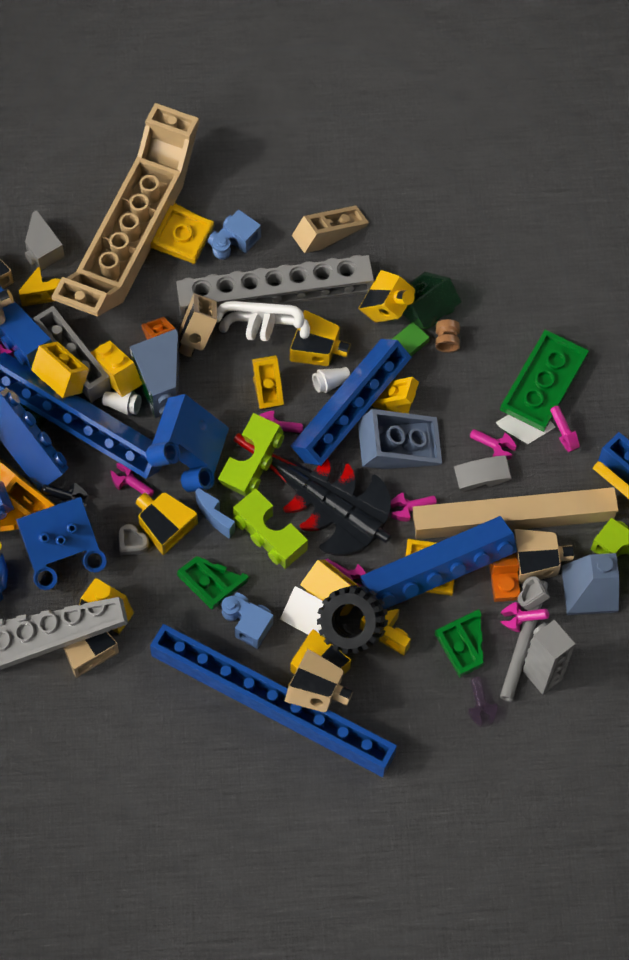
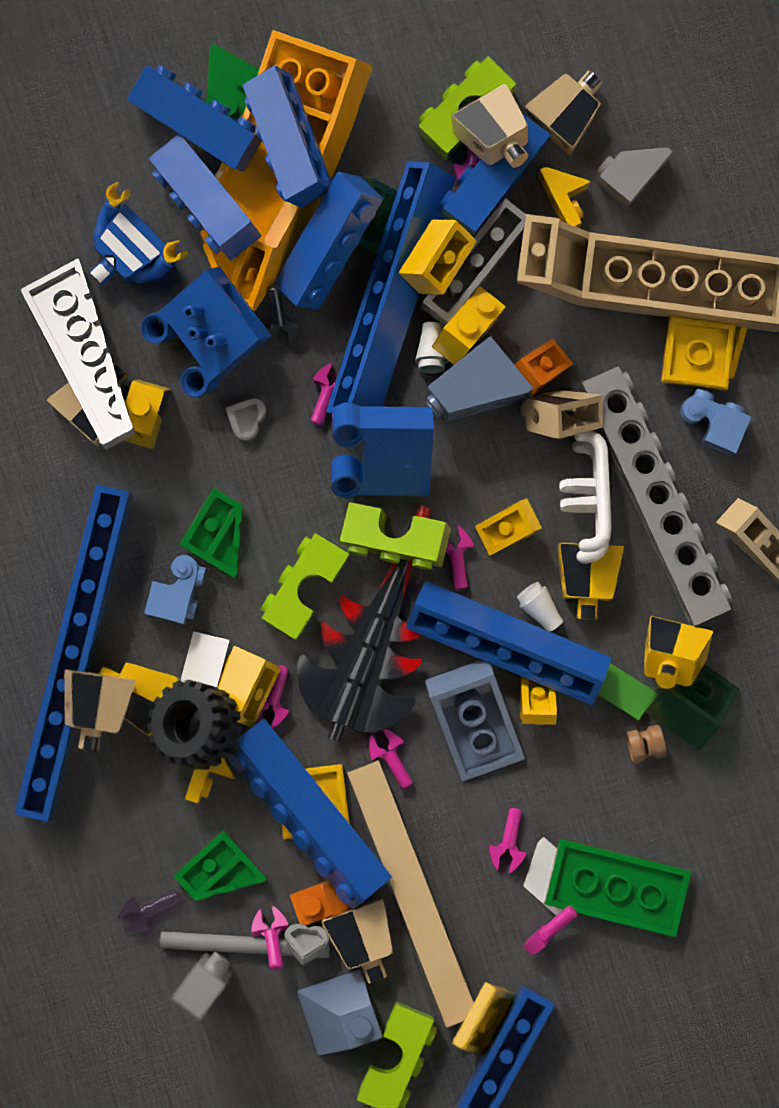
camera: 70 degrees right, 20 degrees up
(165, 520) = (280, 450): yellow torso -> none
(210, 509) = (312, 503): medium blue slope -> none
(483, 471) = (460, 838): light grey slope -> none

